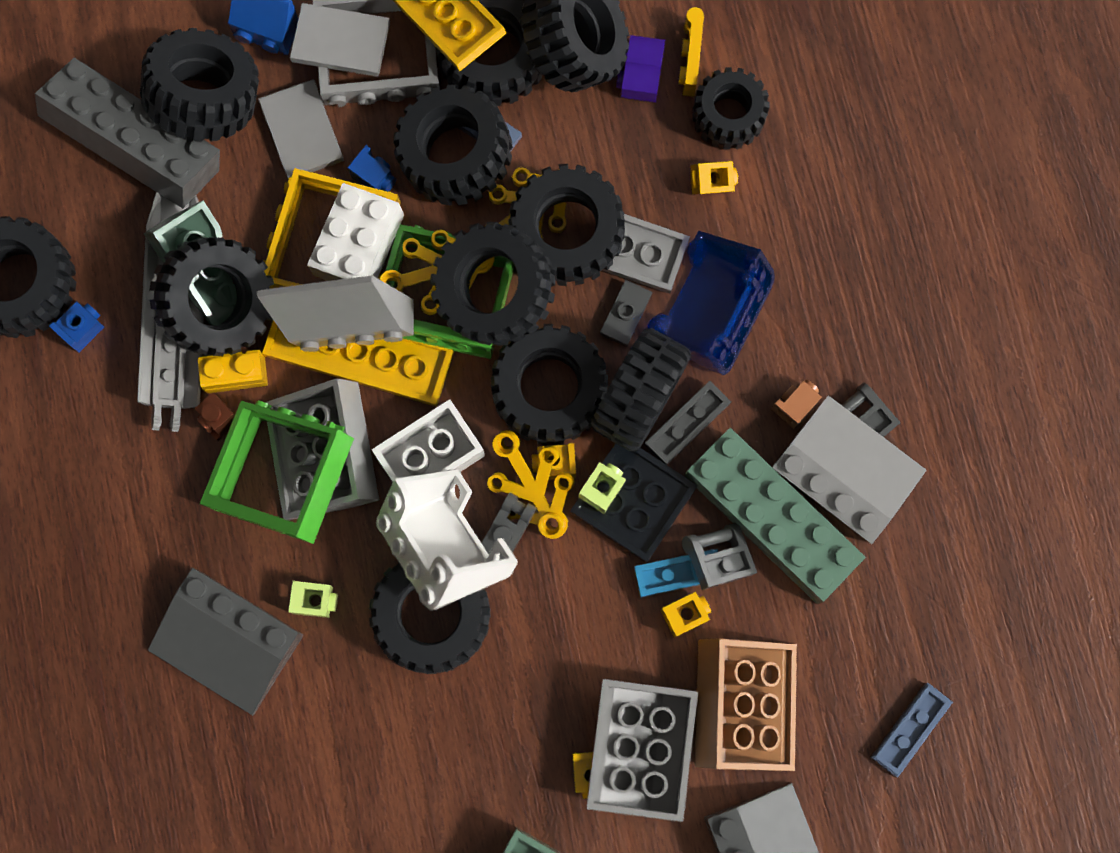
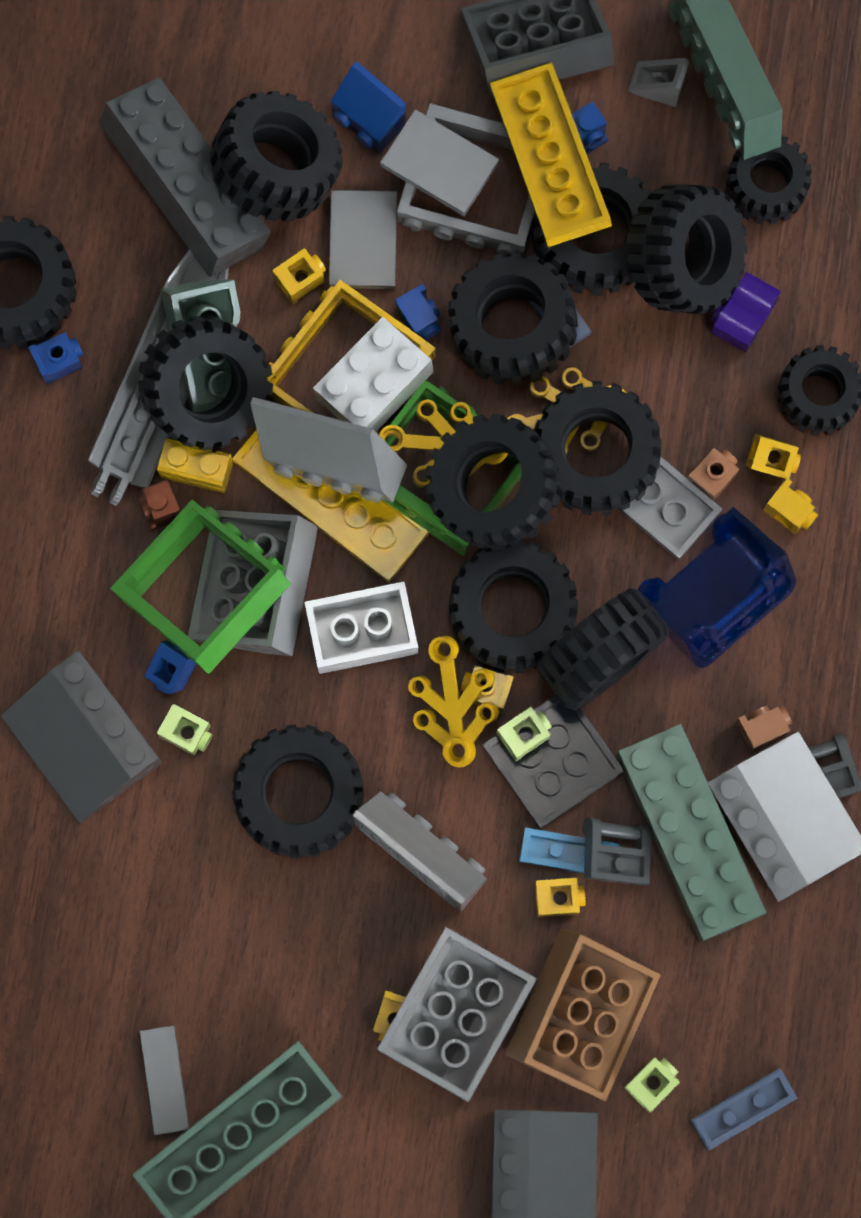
camera: 25 degrees right, 0 degrees up
(252, 172) = (300, 263): none -> yellow brick
(272, 554) = (163, 672): none -> blue brick
(435, 540) = (332, 719): white windscreen -> none
(507, 528) = (401, 745): dark grey plate -> none
(553, 621) = (419, 850): none -> light grey slope
(626, 313) = (624, 563): dark grey plate -> none
(671, 218) = (712, 484): none -> nougat brick
(687, 423) = (641, 702): dark grey plate -> none
(691, 49) = (805, 312): yellow plate -> none
(745, 214) = (791, 508): none -> yellow brick
(833, 752) = (642, 1093): none -> yellowish green brick

